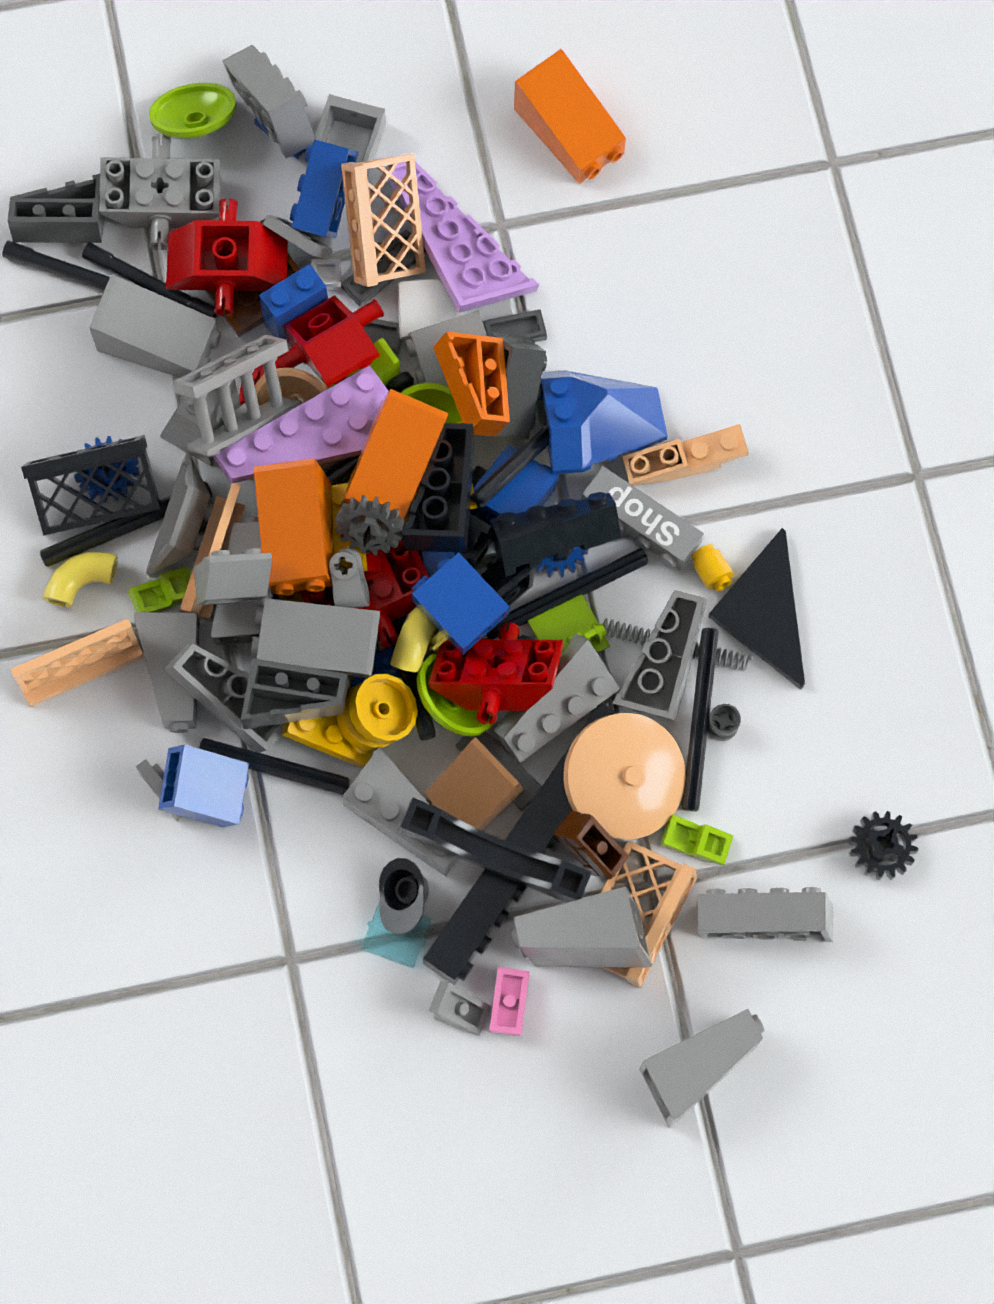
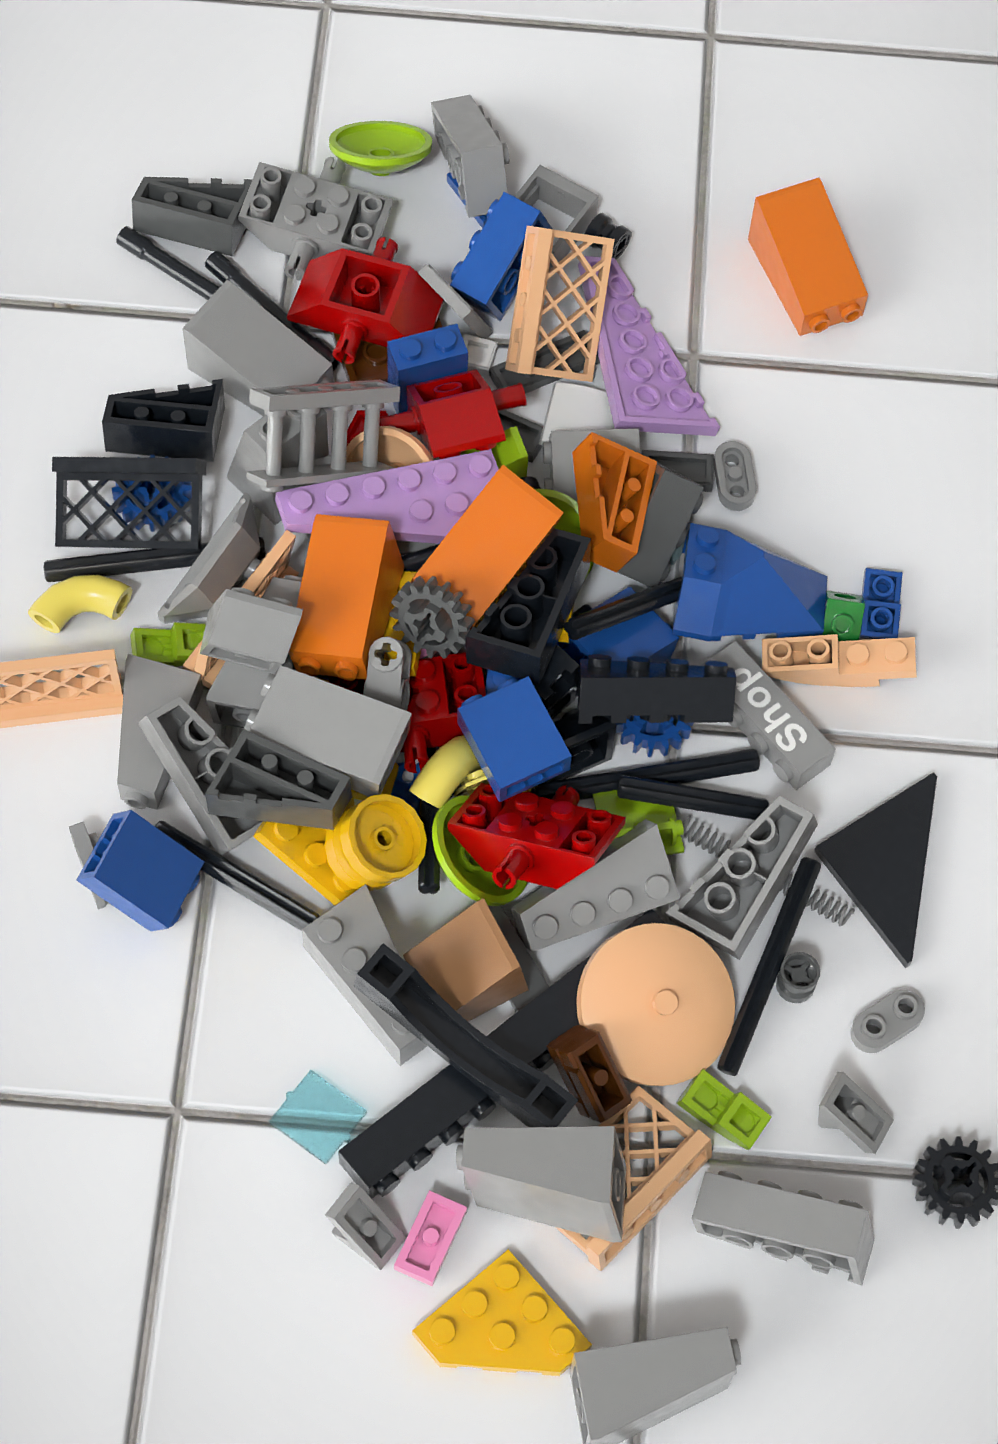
camera: 15 degrees right, 10 degrees down
(99, 407) = (165, 423): none -> black wedge
(401, 140) = (603, 227): none -> black wheel
(402, 895) = (338, 1068): black piece -> none
(563, 324) = (734, 479): none -> light grey plate
(581, 1049) = (502, 1325): none -> yellow plate
(605, 602) = (691, 797): none -> black axle
(679, 418) = (843, 615): none -> green bracket
(705, 400) = (882, 604): none -> blue slope
(712, 568) = (835, 794): yellow brick -> none
(794, 817) = (854, 1113): none -> light grey slope
(799, 734) = (889, 1019): none -> light grey plate

